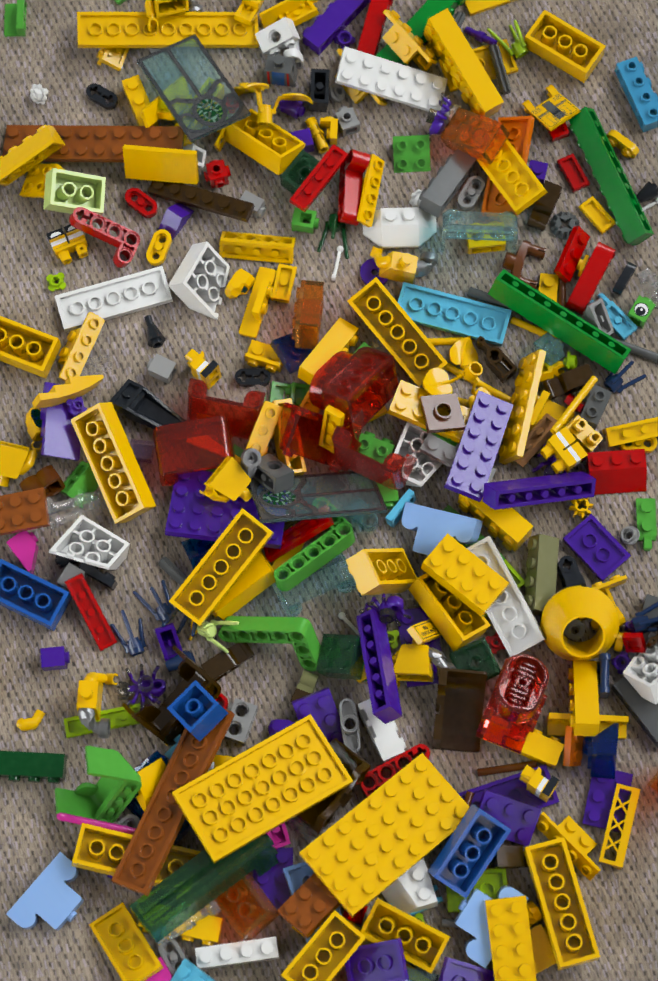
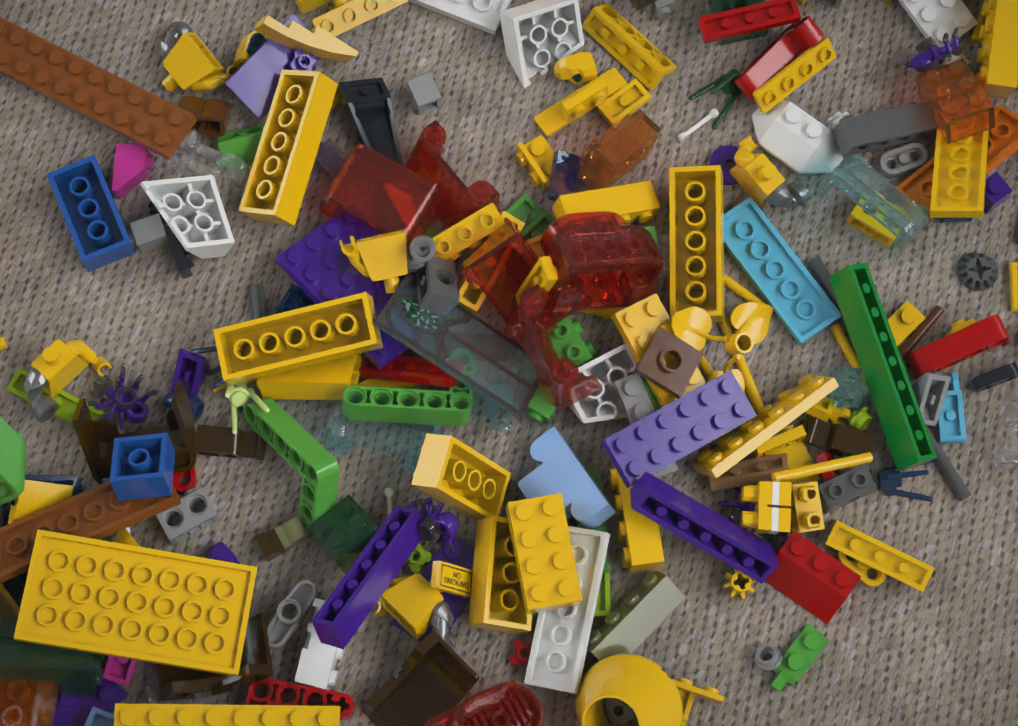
camera: 35 degrees right, 0 degrees up
(54, 658) = (63, 299): dark purple brick -> none
(91, 612) = (138, 281): red tile -> none
(134, 645) = (151, 350): dark blue plant -> none
(154, 336) = (445, 56): black cone -> none
(163, 609) = (207, 337): dark blue plant -> none
(202, 369) = (463, 124): yellow hips -> none
(252, 372) = (513, 170): black beam -> none
(300, 217) = (696, 48): bright green brick -> none
(323, 711) = (274, 578): dark purple plate -> none
(396, 513) = (530, 432): medium azure tile -> none
(411, 153) = (873, 71): bright green hinge -> none
(478, 651) = (497, 648): clear green brick -> none
(502, 367) = (780, 366): dark brown piece -> none
(515, 261) = (889, 267): reddish brown connector -> none
(545, 206) = (972, 233): dark brown piece -> none
(570, 576) = (664, 651): black piece -> none
(571, 254) = (958, 306): red plate -> none
(596, 547) = (719, 641): dark purple plate -> none
(641, 311) = (984, 426): bright green brick -> none

